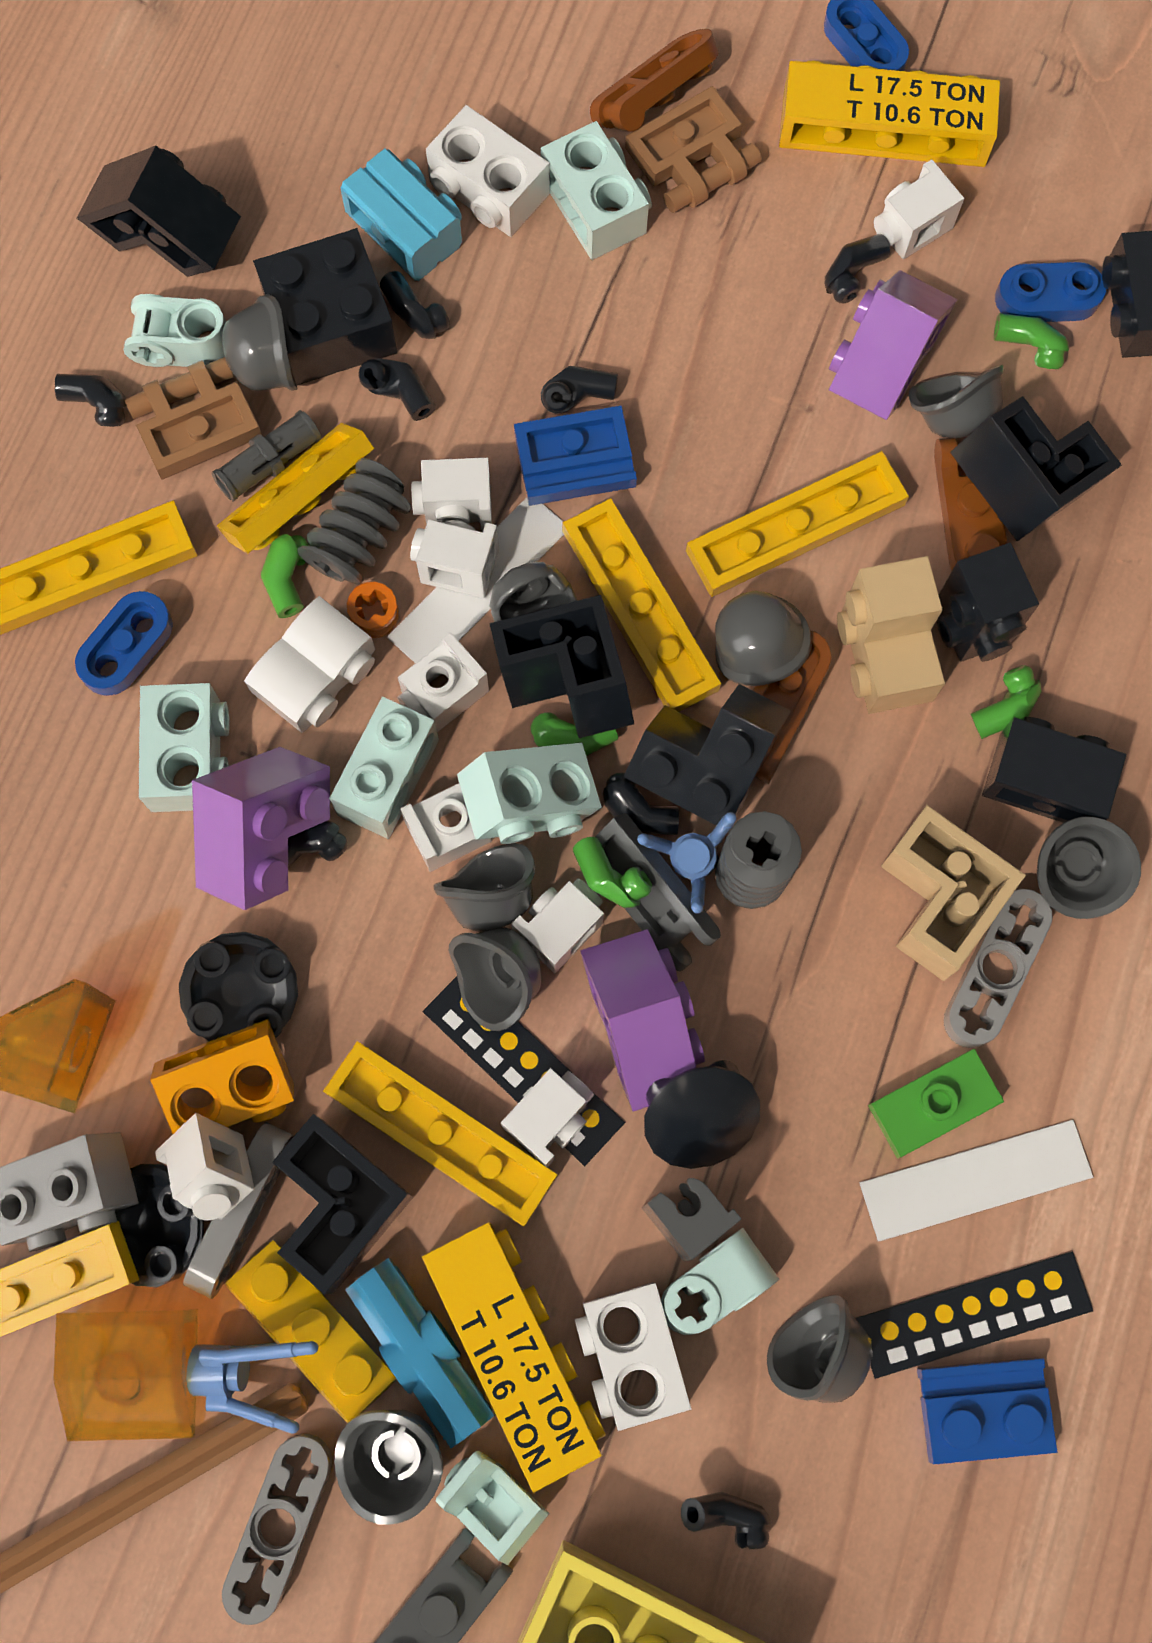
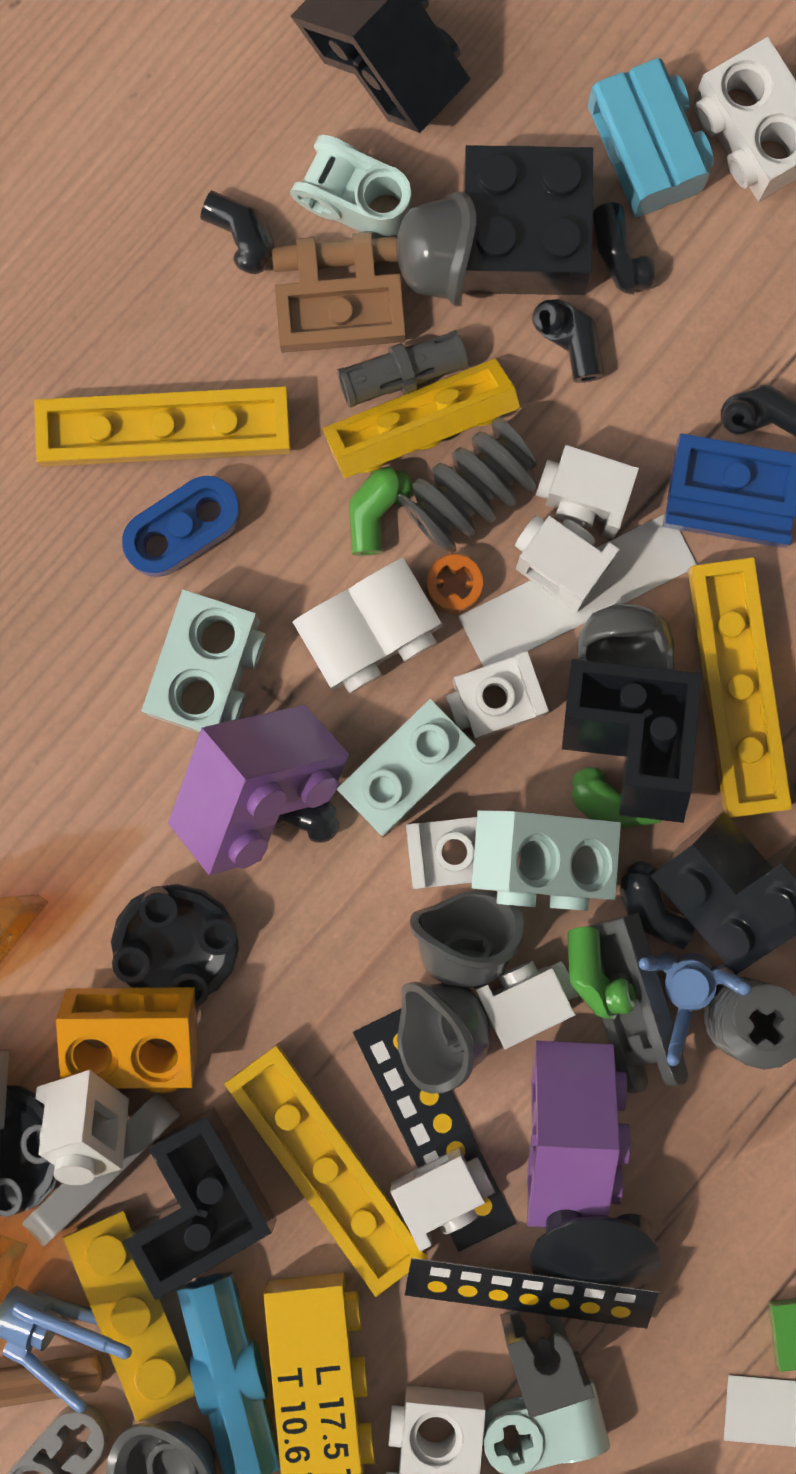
camera: 25 degrees right, 10 degrees up
(657, 1170) = (530, 1293): none -> black sticker

